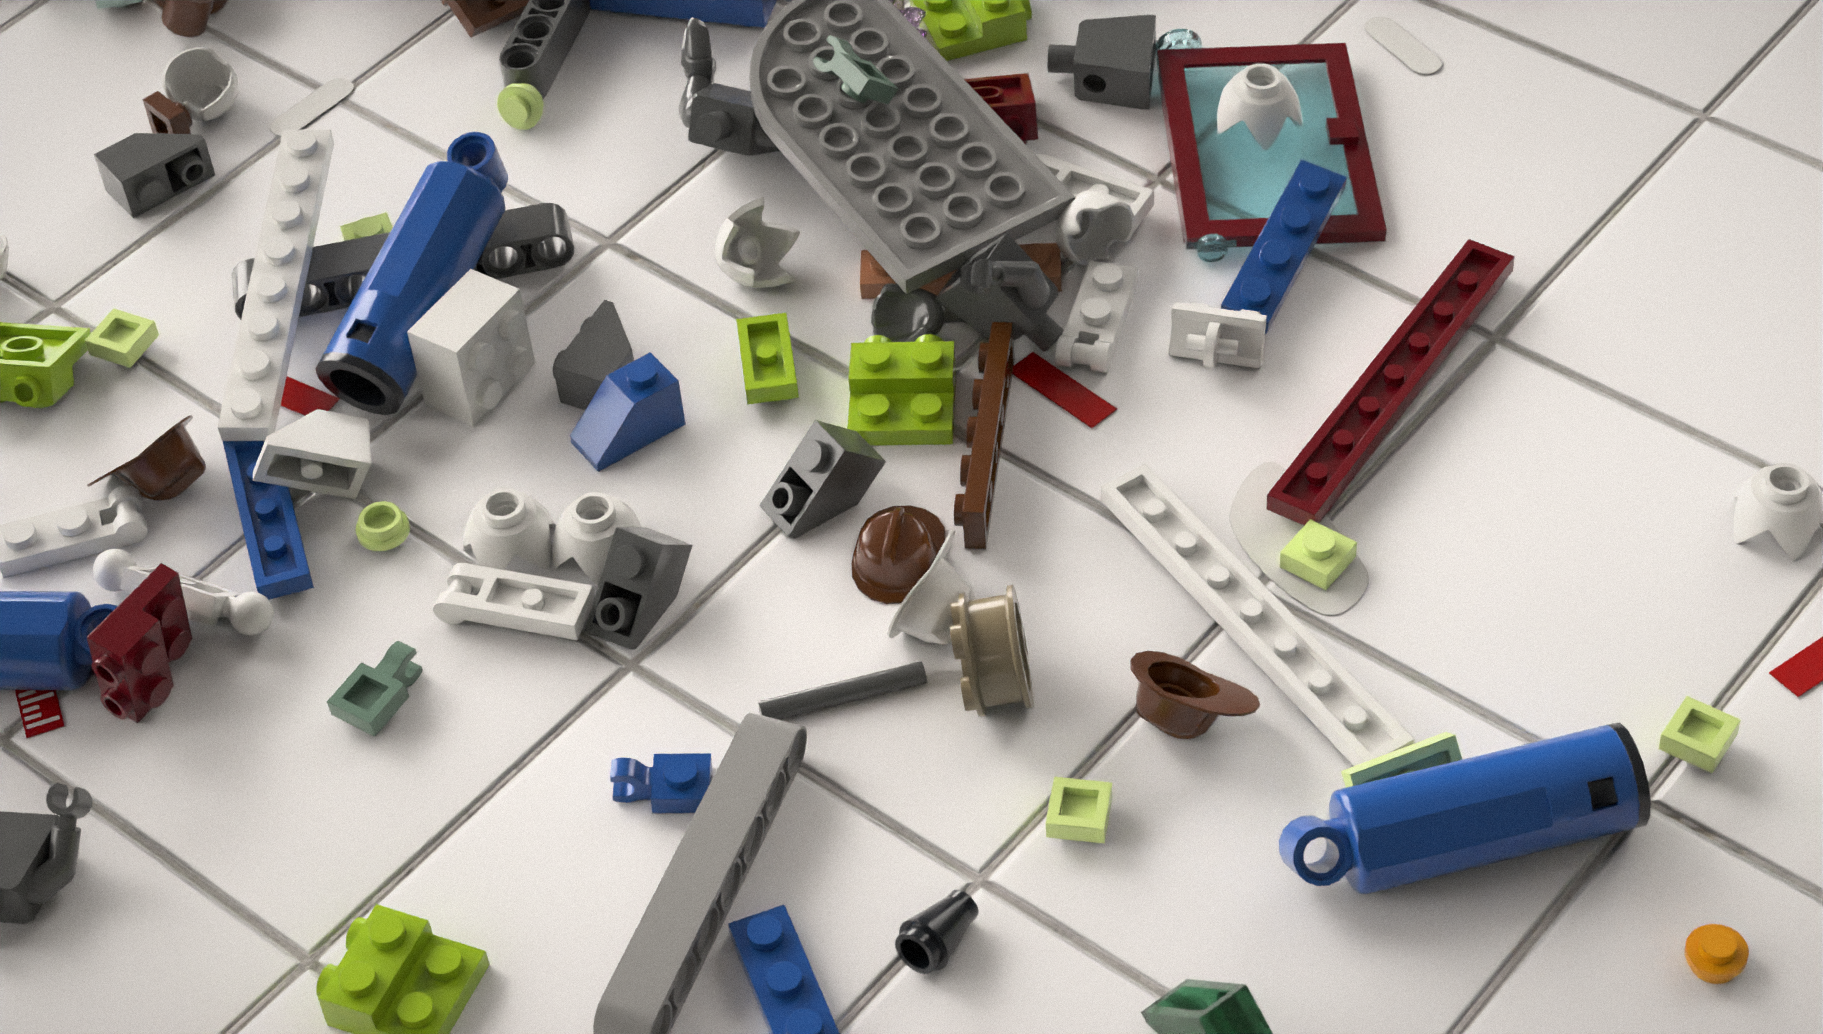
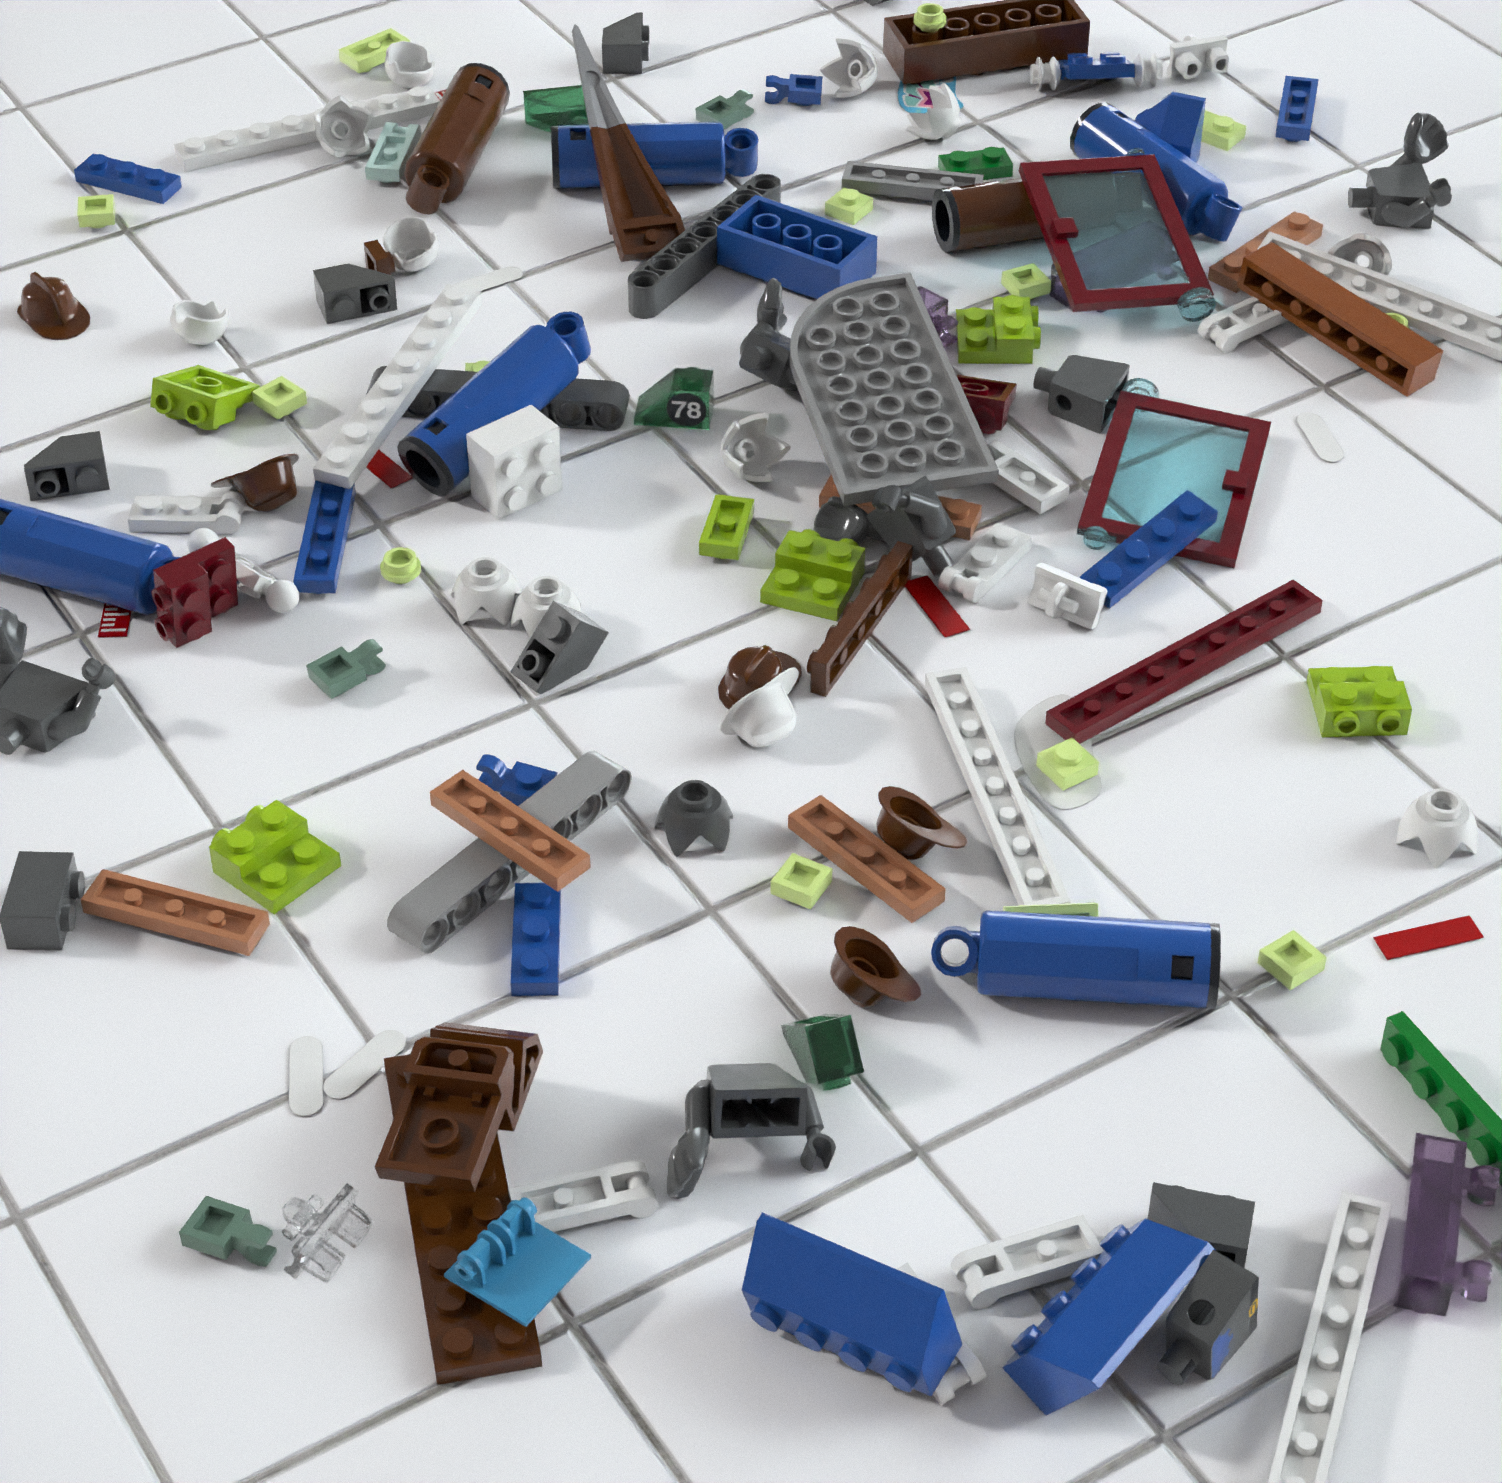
camera: 15 degrees right, 5 degrees down
(318, 454) = (373, 503): white slope -> none
(515, 601) = (468, 638): white plate -> none
(520, 105) = (632, 314): yellowish green plate -> none
(591, 355) = (601, 500): dark grey slope -> none
(629, 412) = (609, 536): blue slope -> none
(630, 206) = (678, 400): none -> clear green slope
(703, 859) = (510, 830): none -> nougat plate
(821, 479) = (725, 614): dark grey slope -> none
(843, 691) = (674, 760): dark grey bar -> none
(860, 76) = (871, 345): sand green plate -> none
(910, 773) = (694, 811): none -> dark grey piece
(933, 935) = (656, 930): black cone -> none
(992, 651) = (786, 756): dark tan wheel -> none
(1092, 225) = (1008, 497): white hair -> none
(1142, 754) = (866, 858): none -> nougat plate
(1223, 910) = (869, 970): none -> reddish brown piece
(1260, 99) = (1177, 442): white piece -> none
(1612, 373) = (1359, 701): none -> lime plate
(1716, 953) = (1226, 1108): light orange plate -> none

